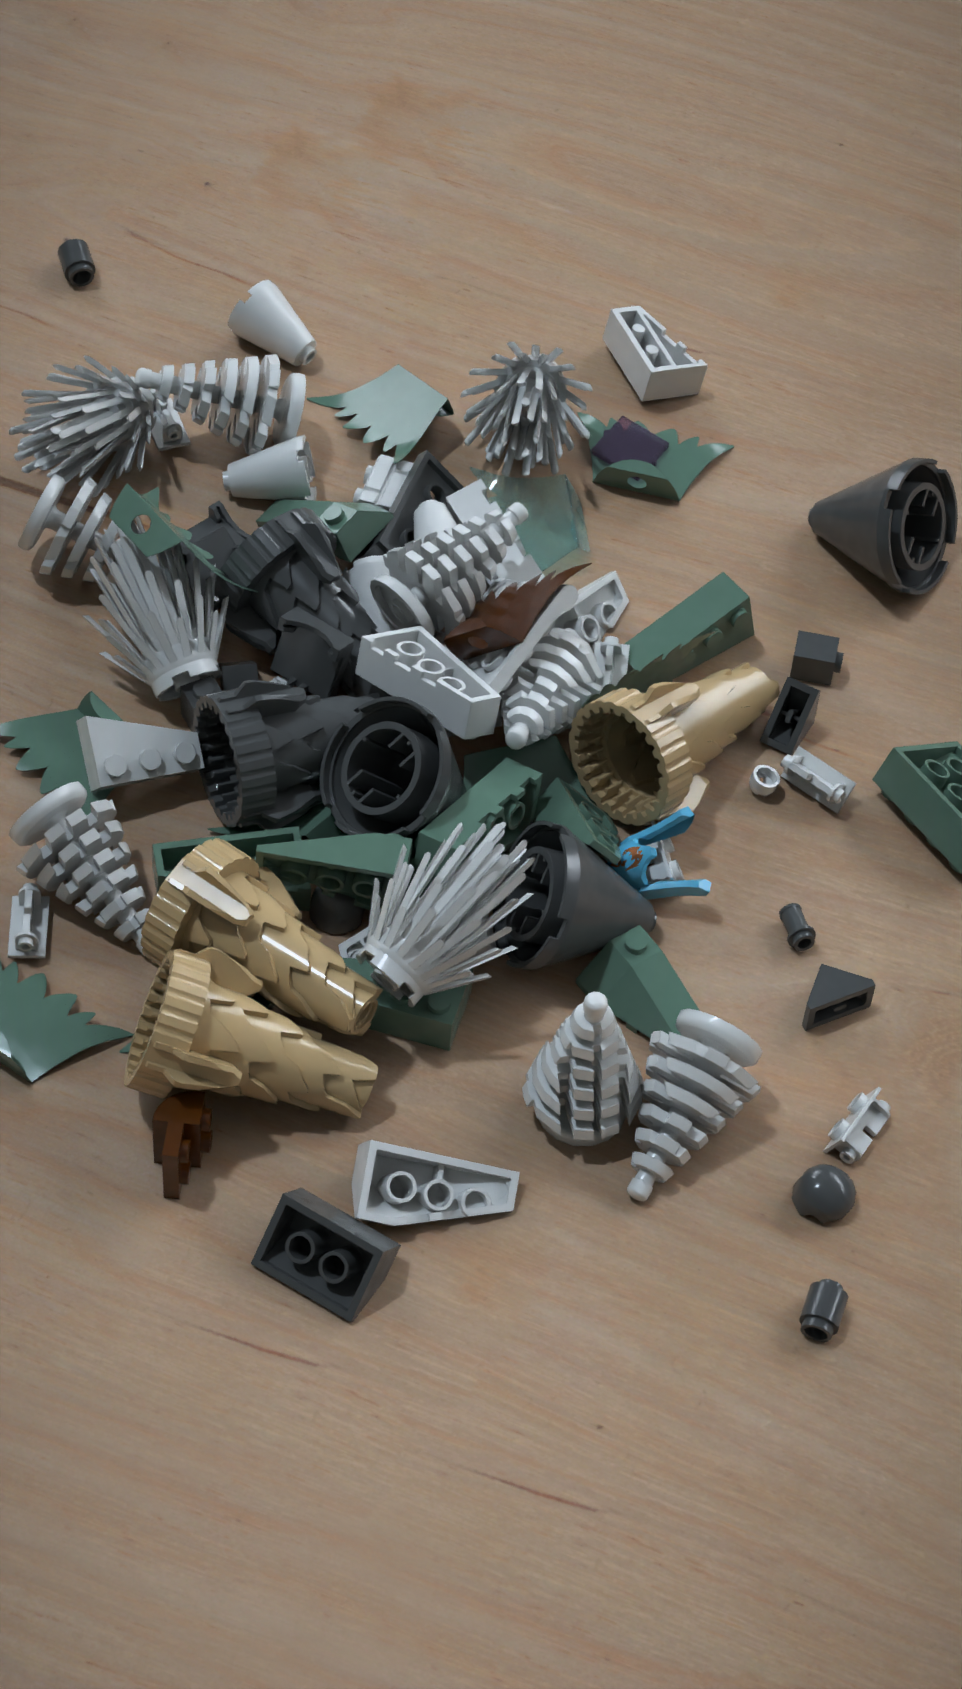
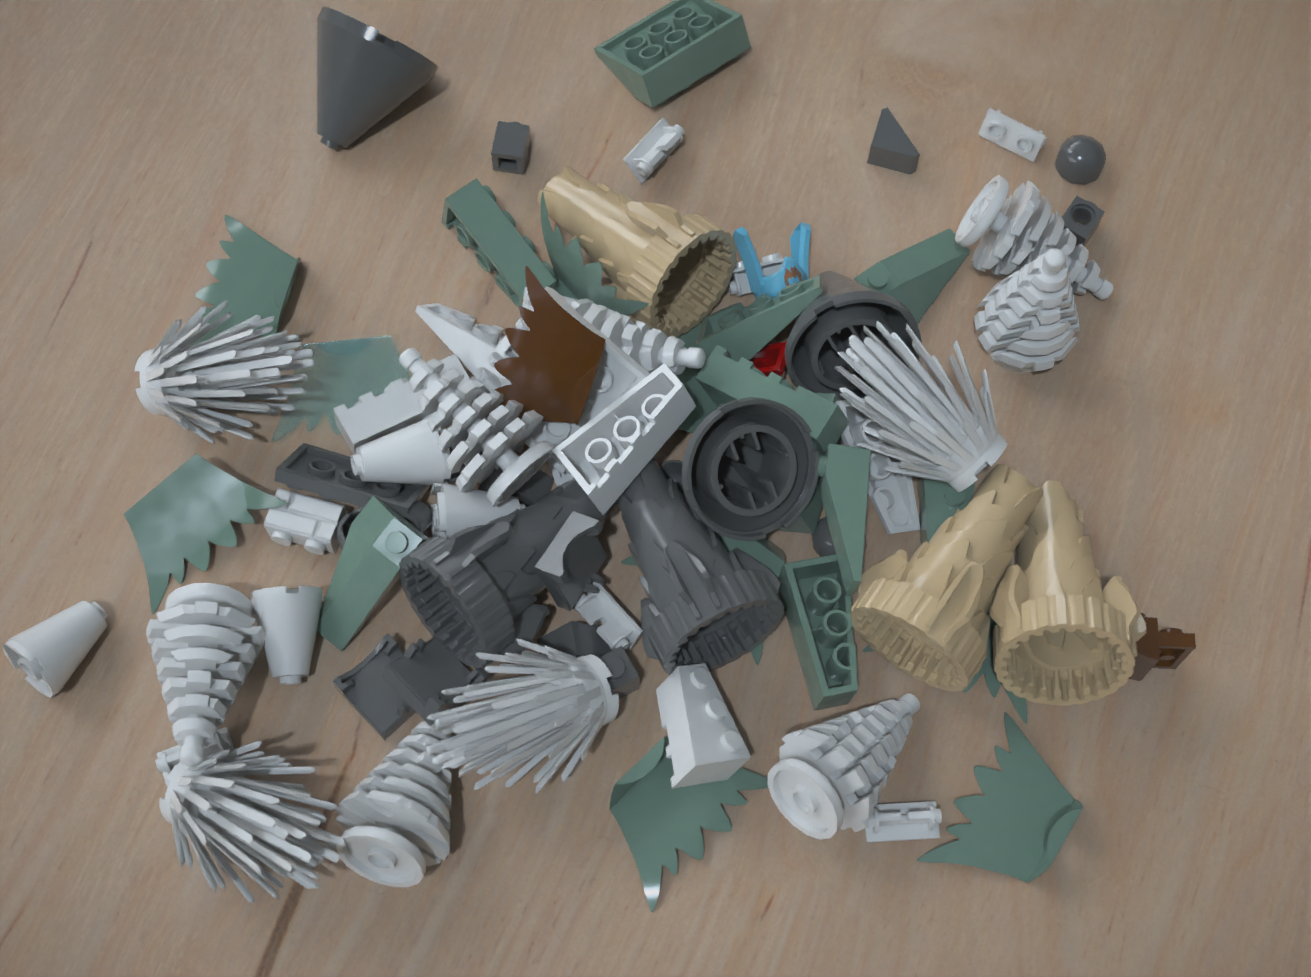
camera: 90 degrees left, 15 degrees up
(162, 533) = (454, 700): sand green piece -> none
(325, 1253) = (1218, 523): dark grey slope -> none
(415, 1186) = (1136, 455): white wedge -> none
(627, 442) = (244, 293): clear purple piece -> none
(649, 357) = (112, 279): white wedge -> none
(725, 1156) = (1086, 214): none -> dark grey brick
(770, 780) = (658, 190): white hinge -> none
(791, 716) = (587, 161): dark grey slope -> none
(800, 934) = (817, 170): dark grey pin -> none
(823, 1310) = (1192, 160): dark grey brick -> none

